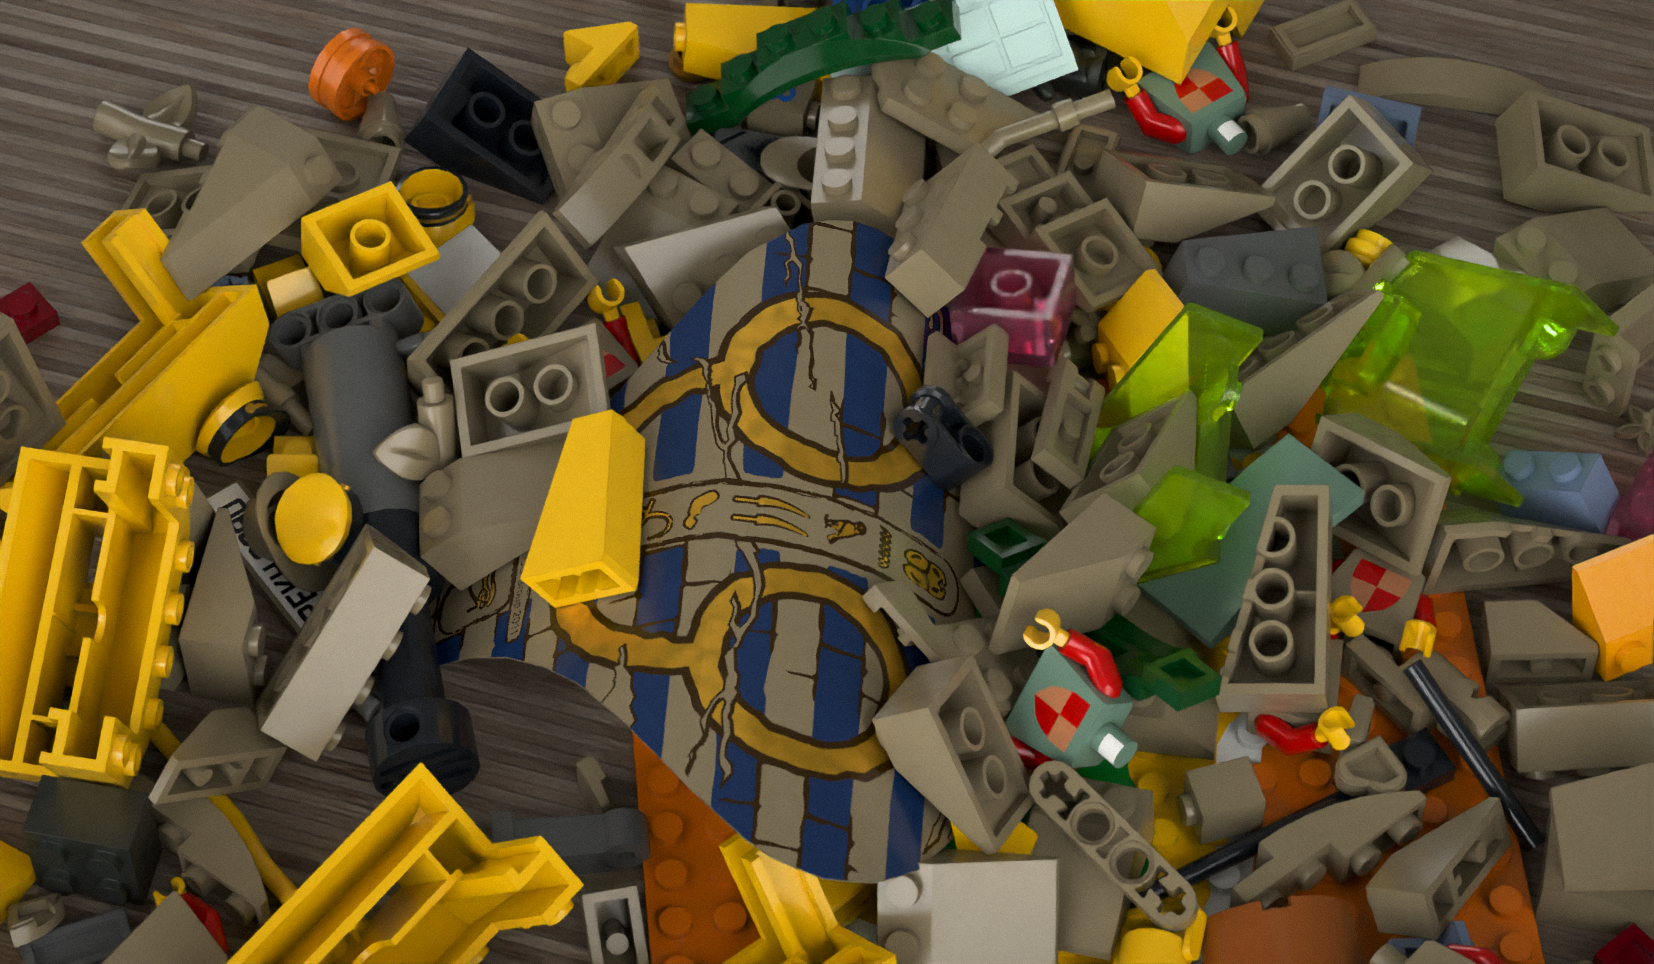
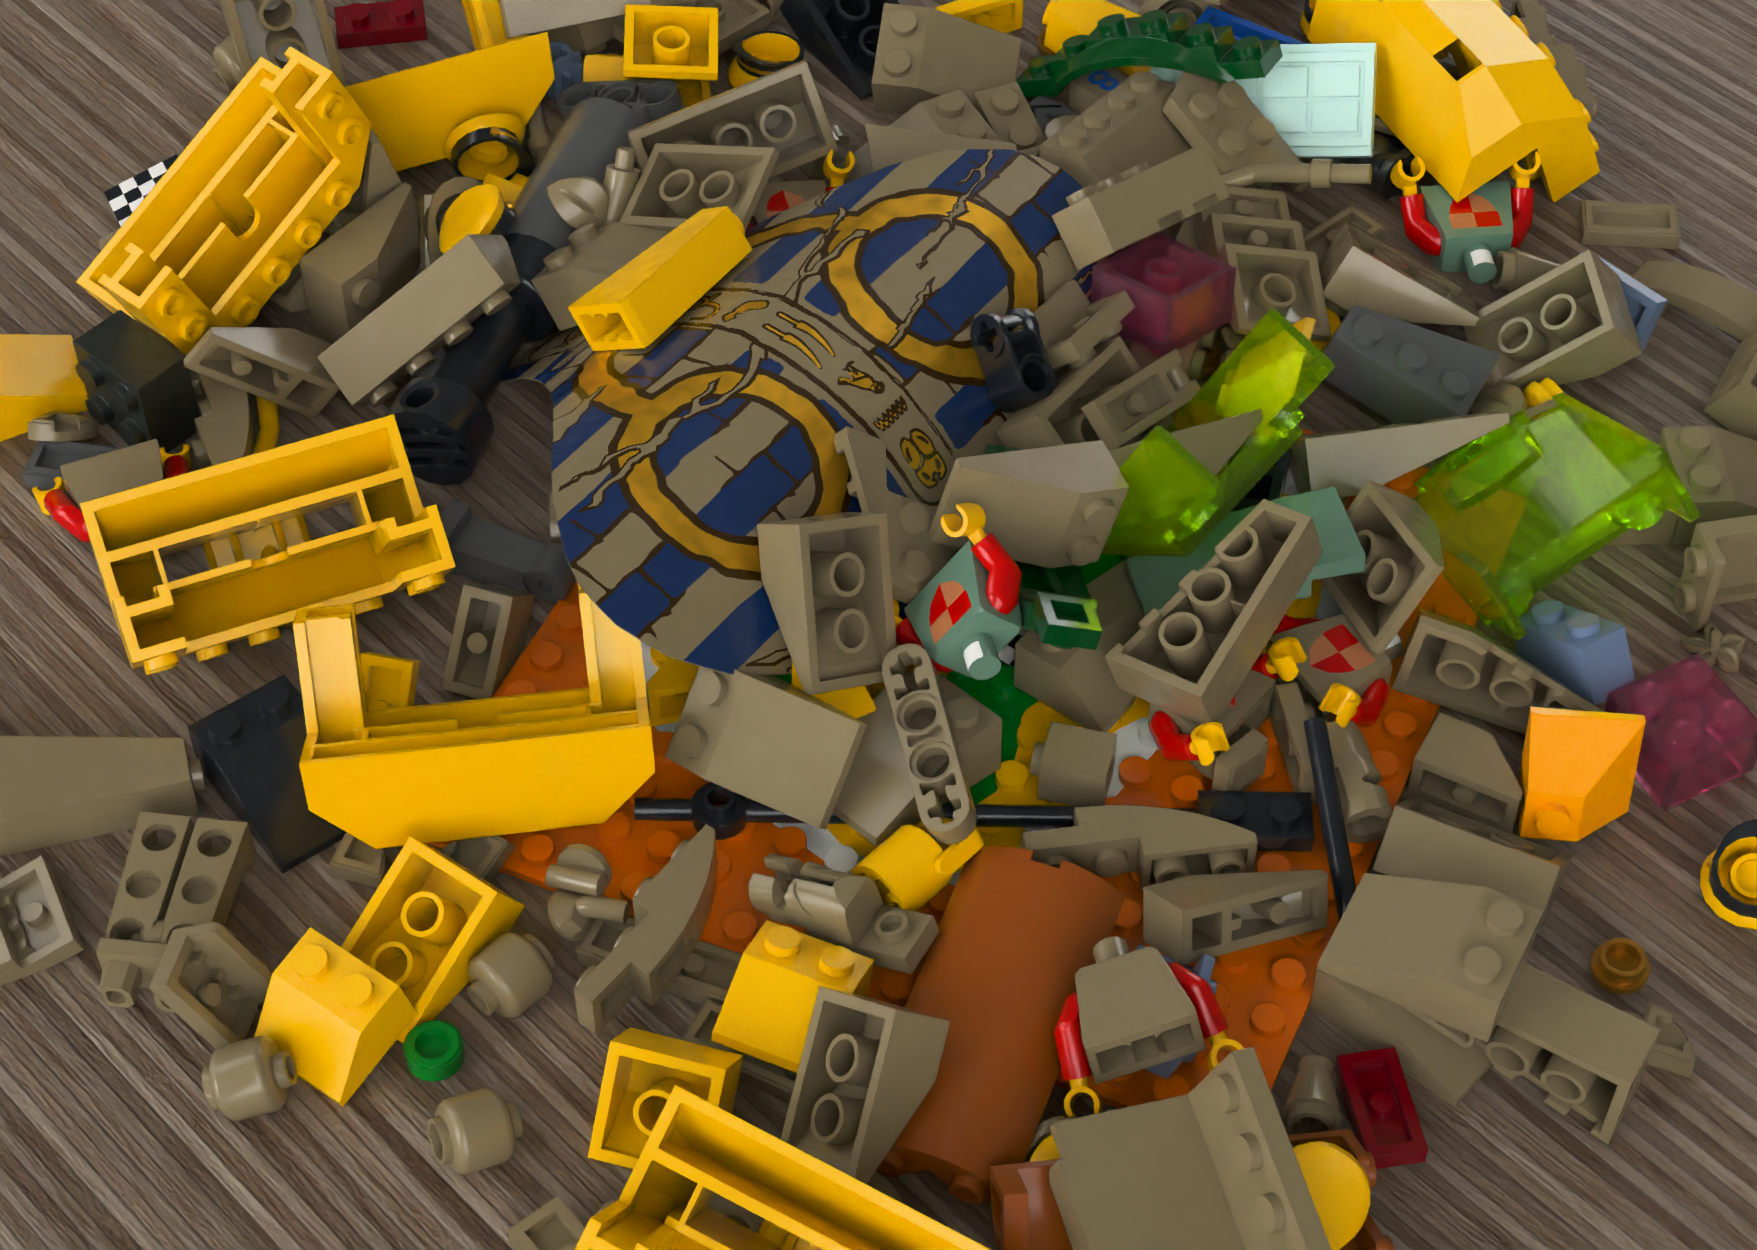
camera: 30 degrees right, 5 degrees down
(622, 168) = (920, 75): dark tan slope -> none
(1370, 770) = (1224, 797): dark tan tile -> none

